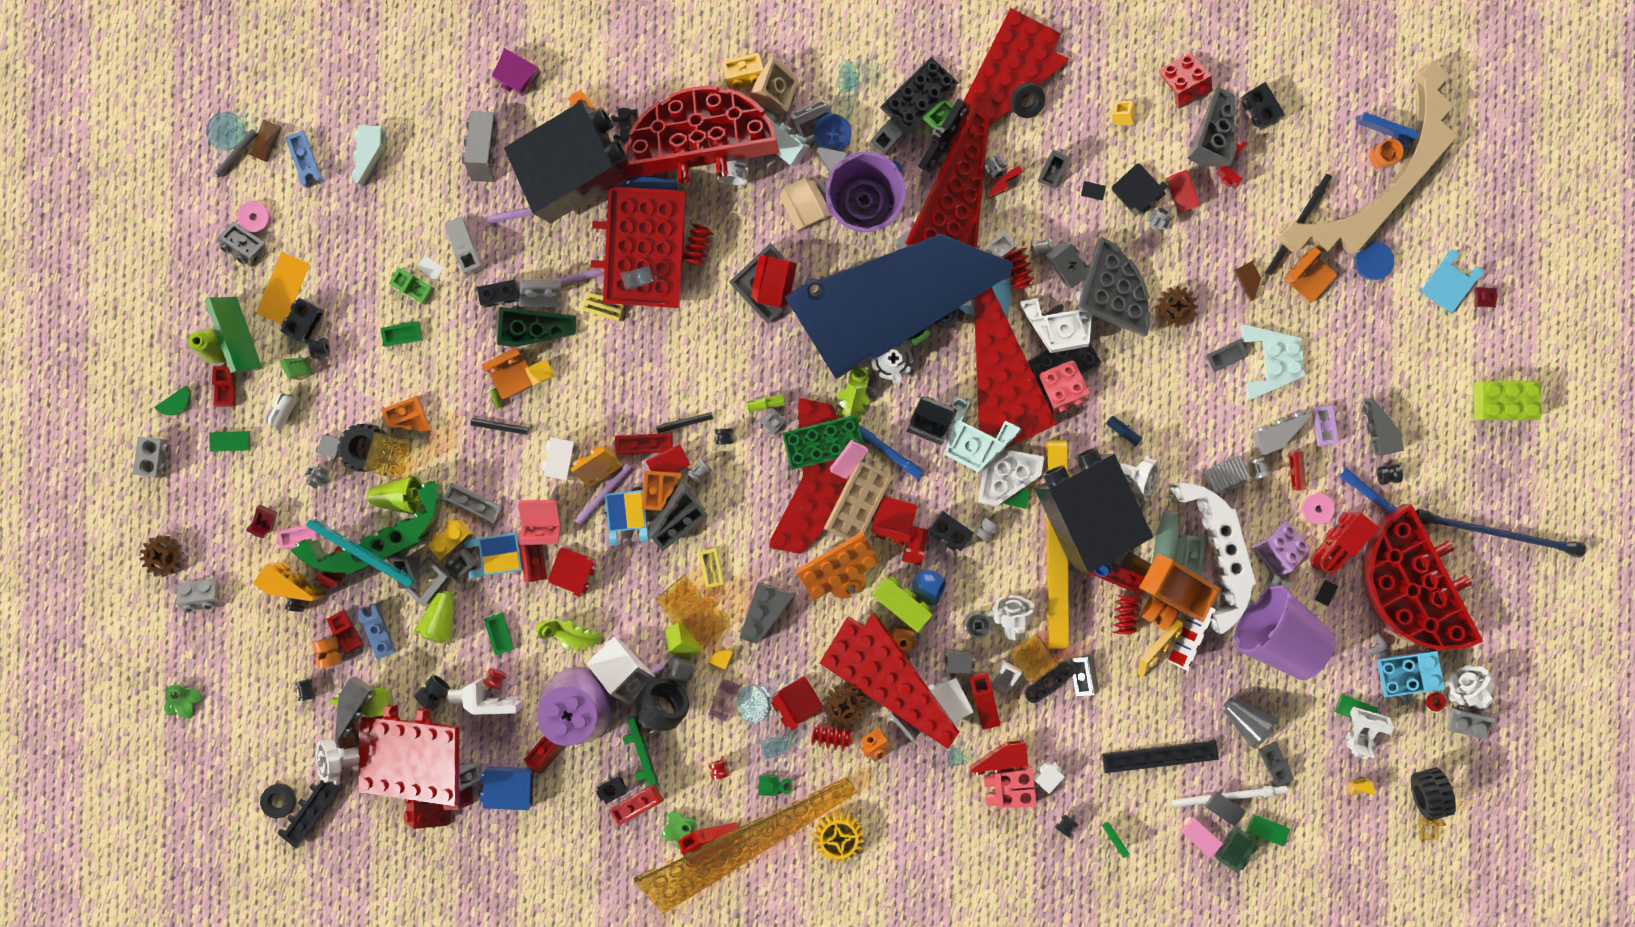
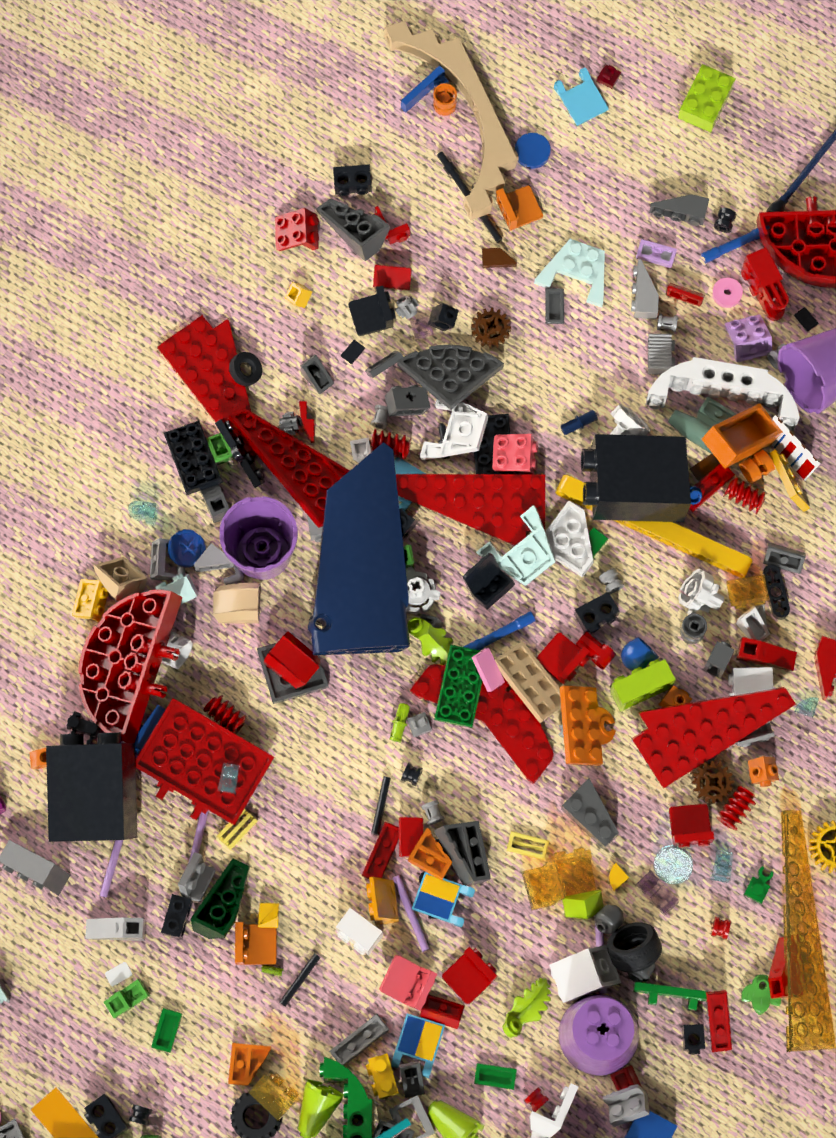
camera: 65 degrees left, 15 degrees down
(525, 759) = (627, 1105): none -> light grey bracket
(1094, 225) = (384, 364): none -> dark grey tile
(1165, 257) = (443, 317): none -> black brick

